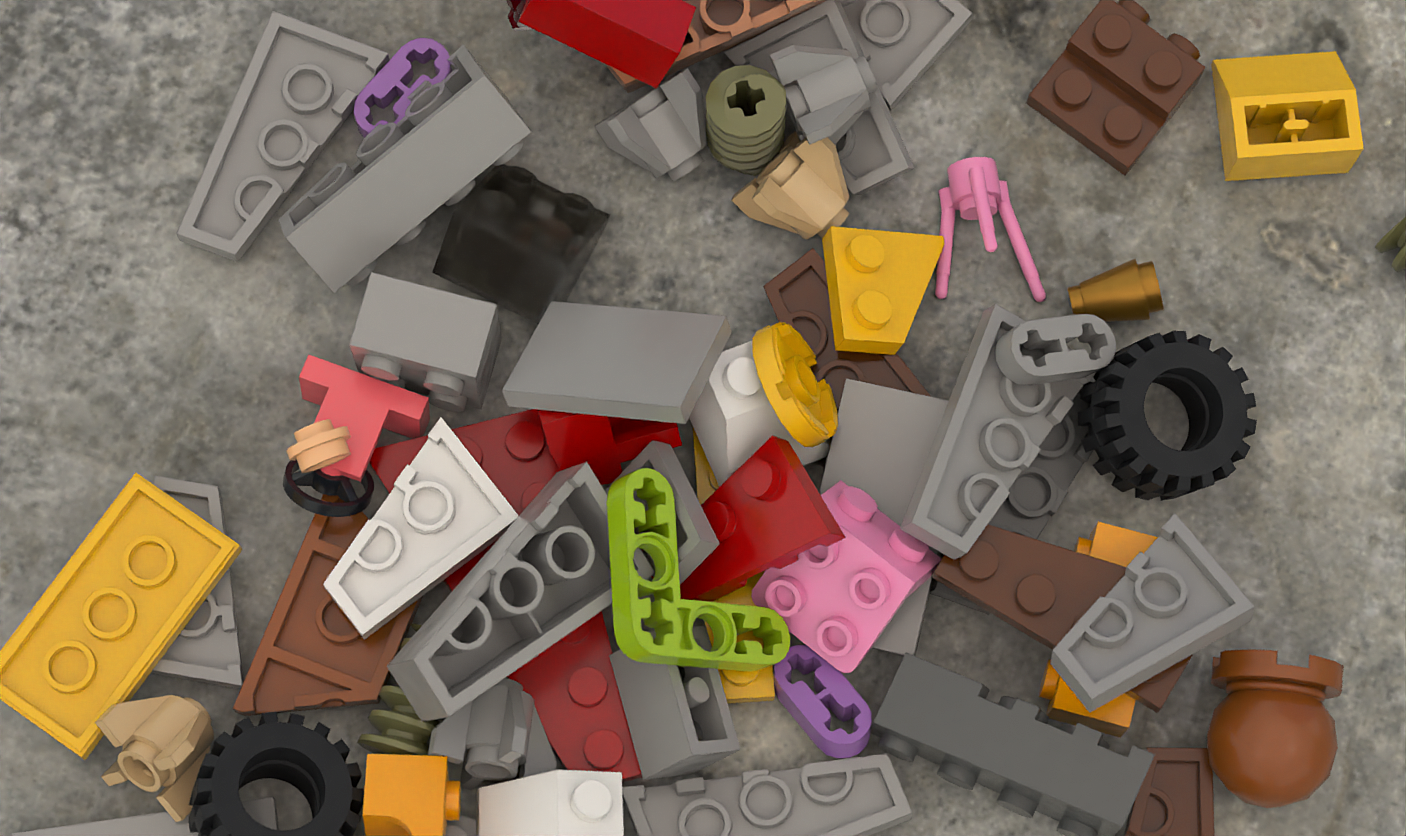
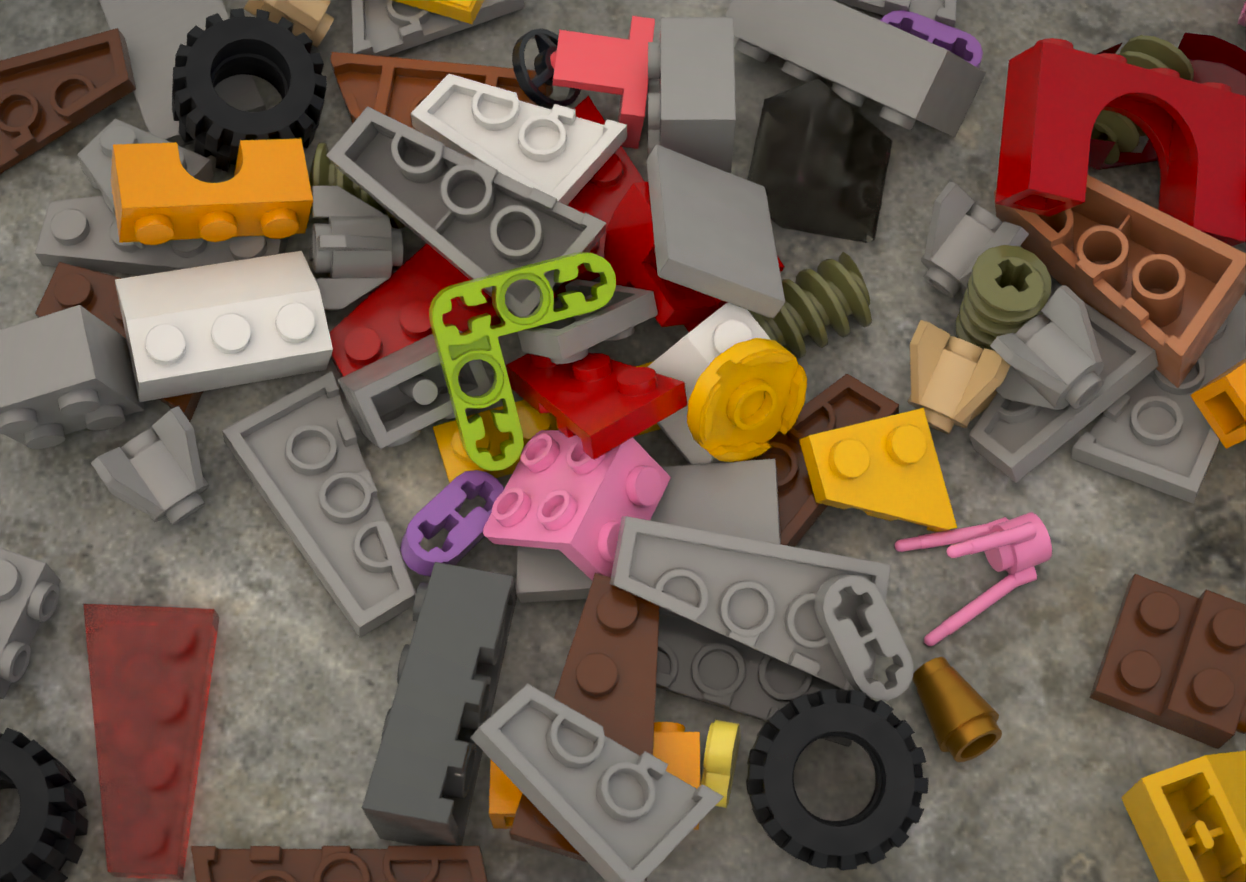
camera: 80 degrees right, 10 degrees down
(319, 446) = (566, 29): light nougat plate -> none
(680, 278) = (819, 301): none -> olive piece
(1118, 510) = (721, 758): none -> light yellow tile

